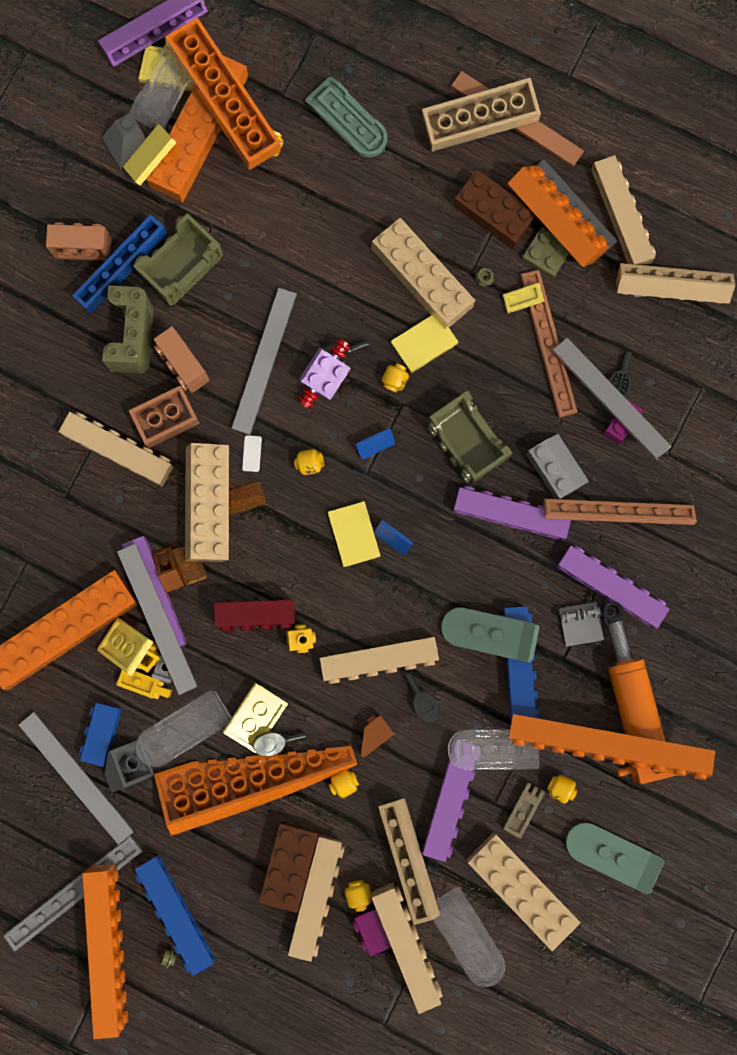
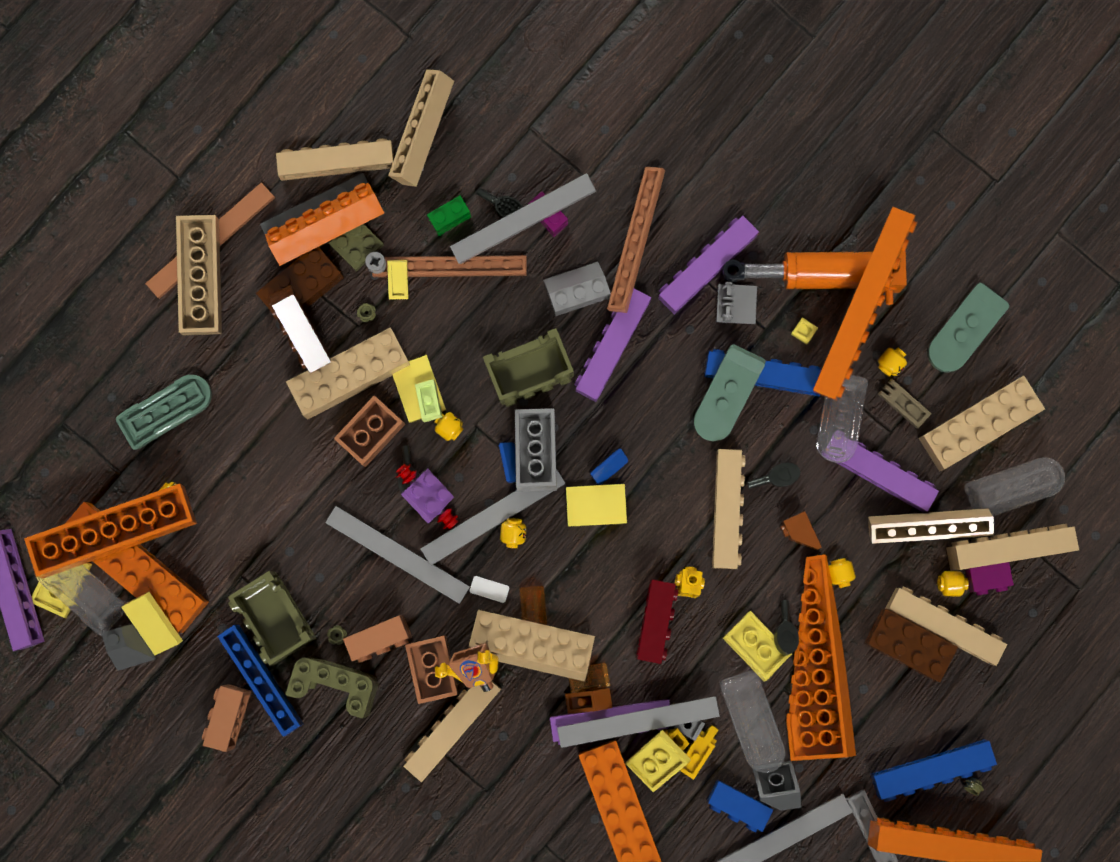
camera: 70 degrees left, 0 degrees up
(173, 450) = (472, 667): none -> torso
(177, 319) = (333, 631): none -> olive plate
(321, 440) = (483, 523): none -> light grey tile
(372, 306) = (369, 431): none -> nougat brick
(391, 463) = (535, 450): none -> light grey brick
(414, 353) = (428, 400): none -> yellowish green plate
(452, 215) = (298, 326): none -> brick
(534, 277) = (377, 266): none -> light grey wheel
(571, 696) = (804, 331): none -> light yellow tile
(596, 330) = (449, 215): none -> green brick

